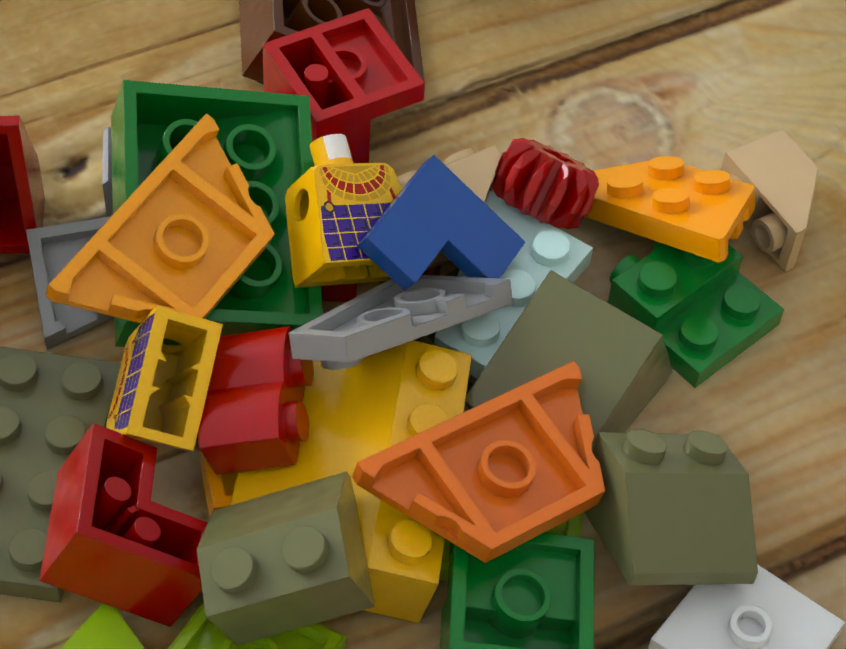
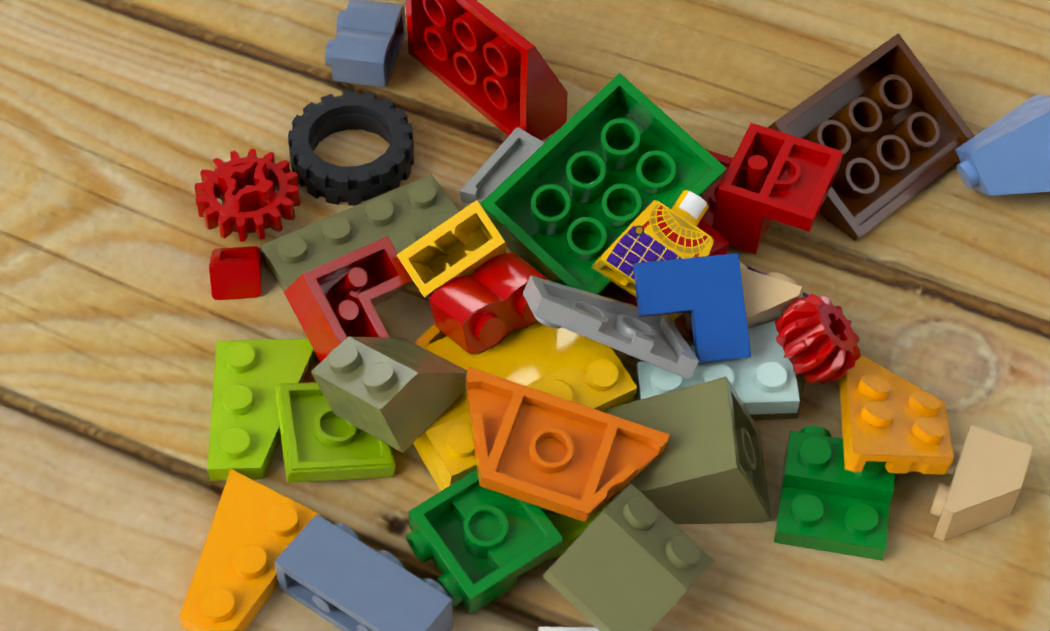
camera: 55 degrees right, 0 degrees up
(173, 240) = (544, 179): light orange wing -> none

